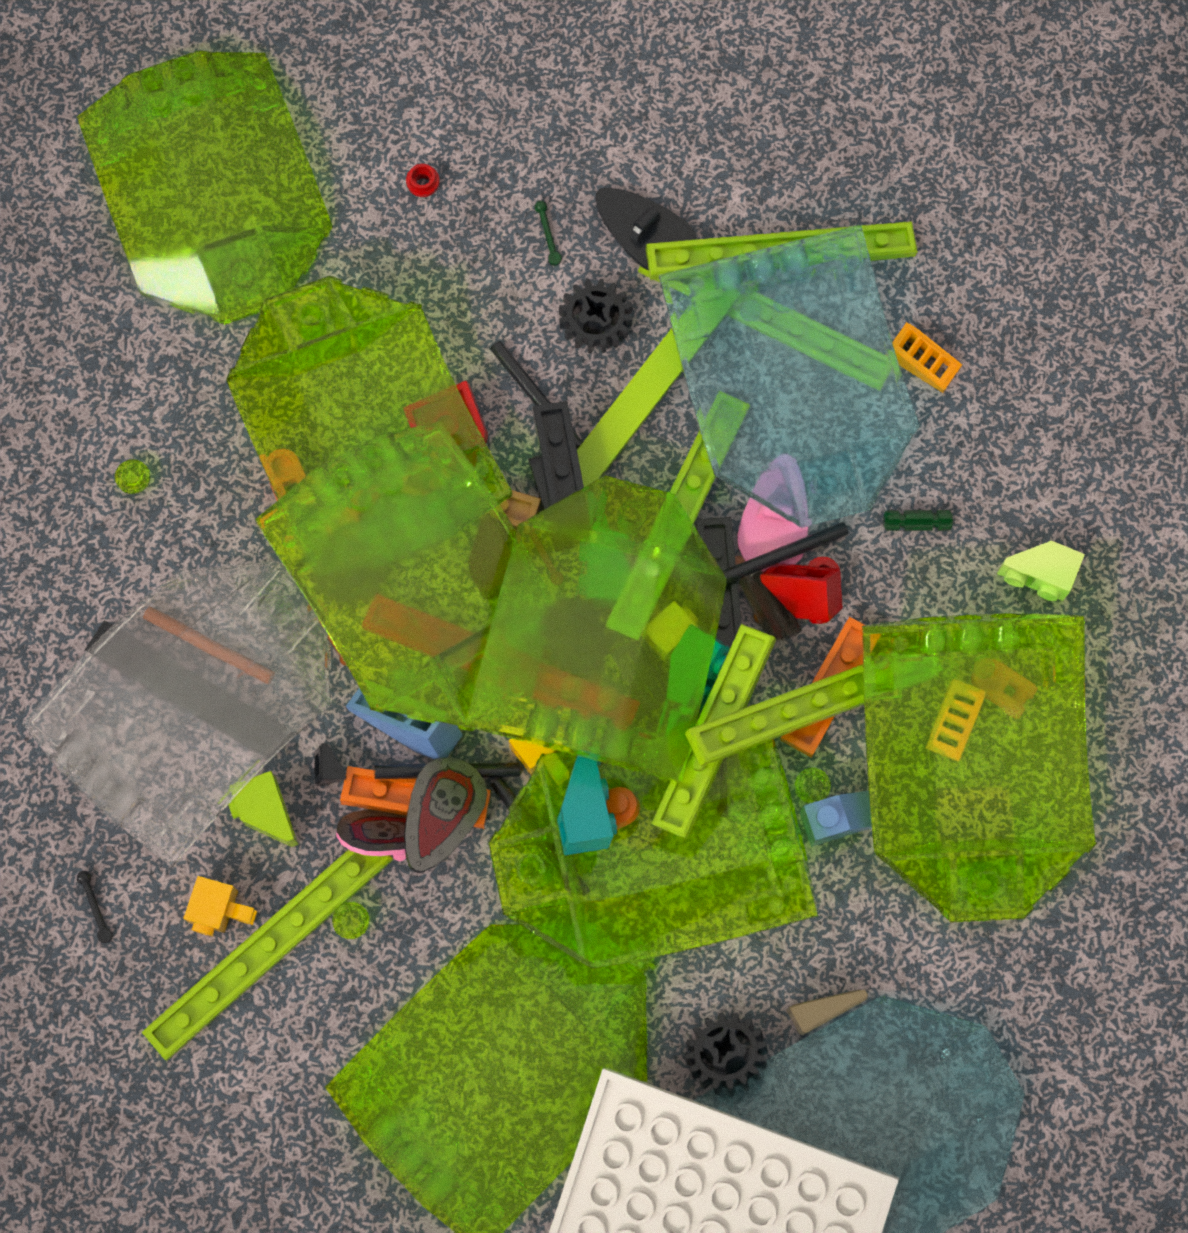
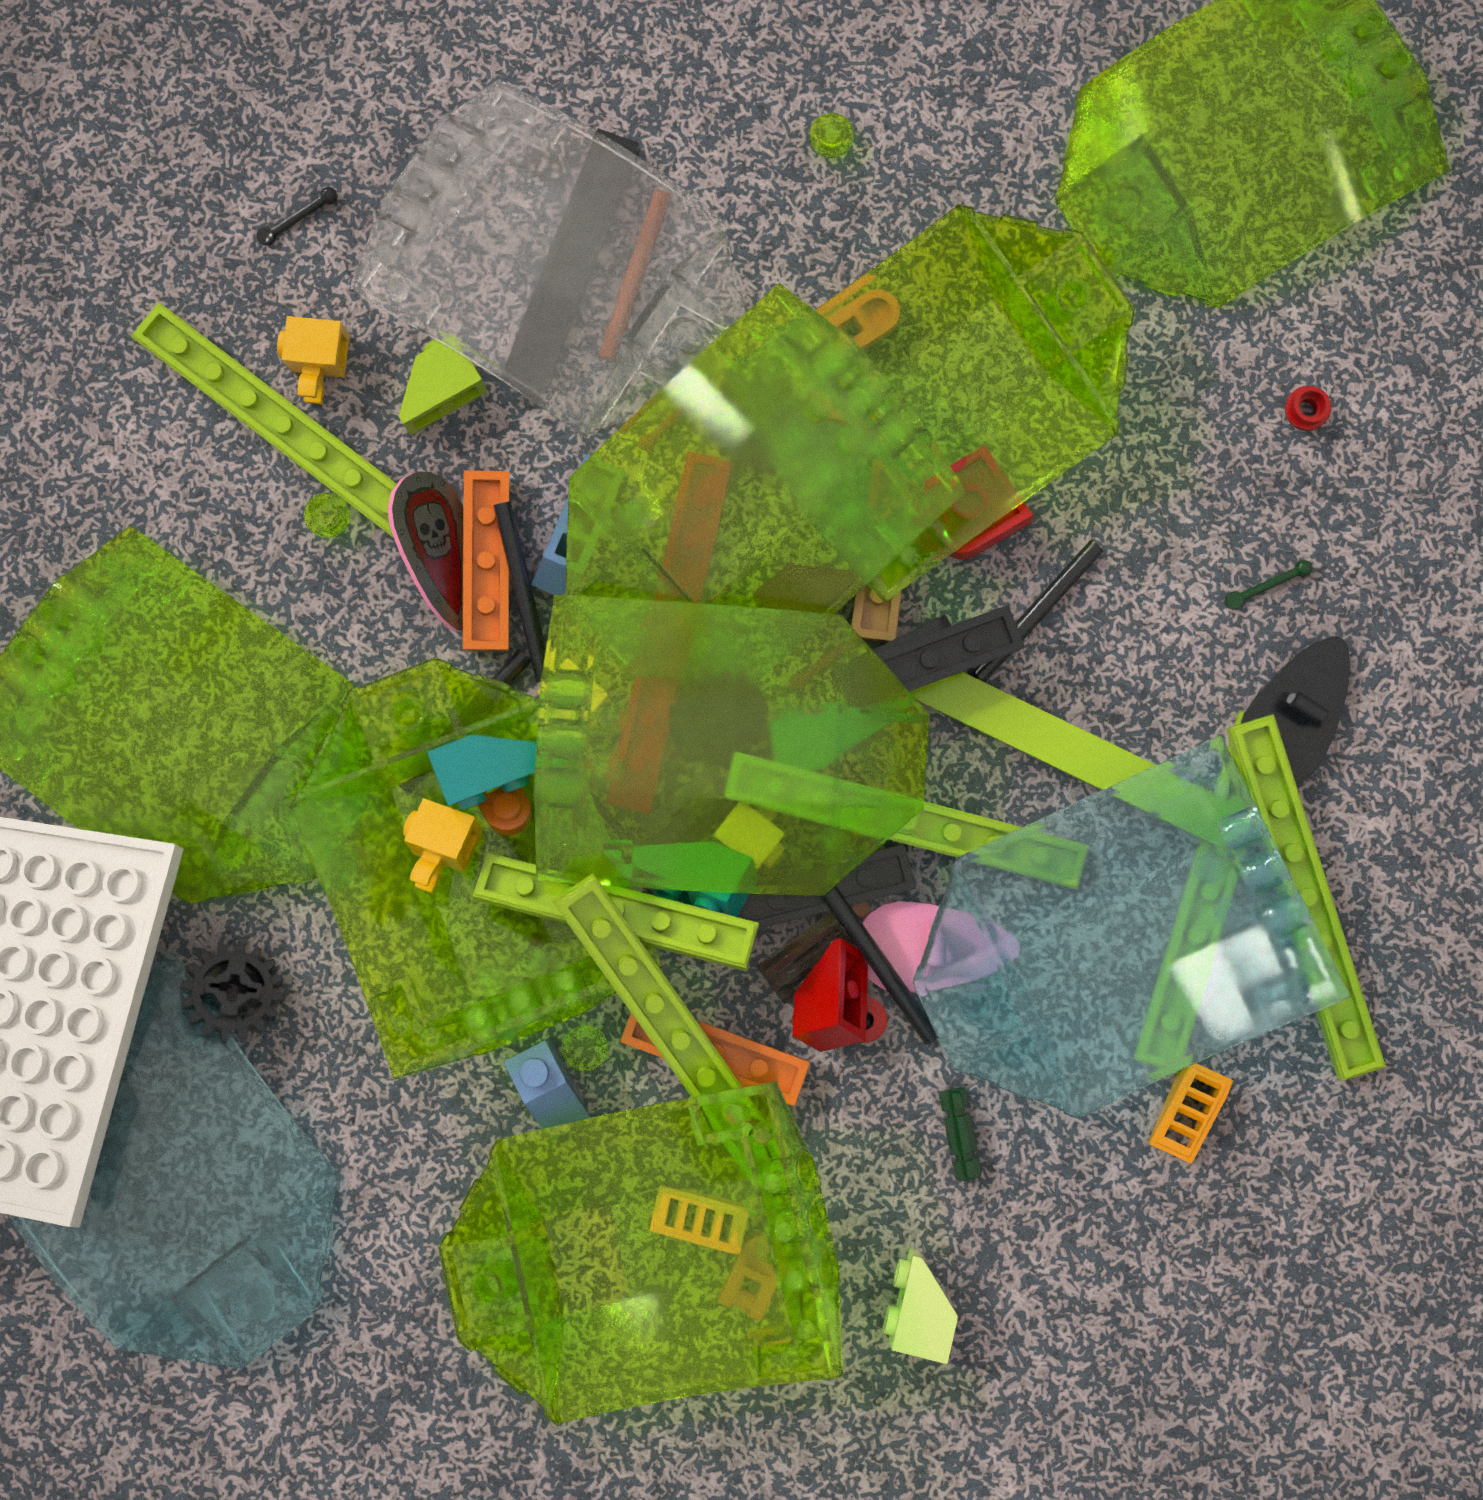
camera: 85 degrees right, 10 degrees up
(327, 767) = (501, 448): black slope -> none
(441, 811) = (461, 593): shield -> none
(594, 330) = (1175, 677): black gear -> none
(635, 856) = (440, 838): none -> yellow brick
(814, 1013) = (301, 1098): dark tan slope -> none

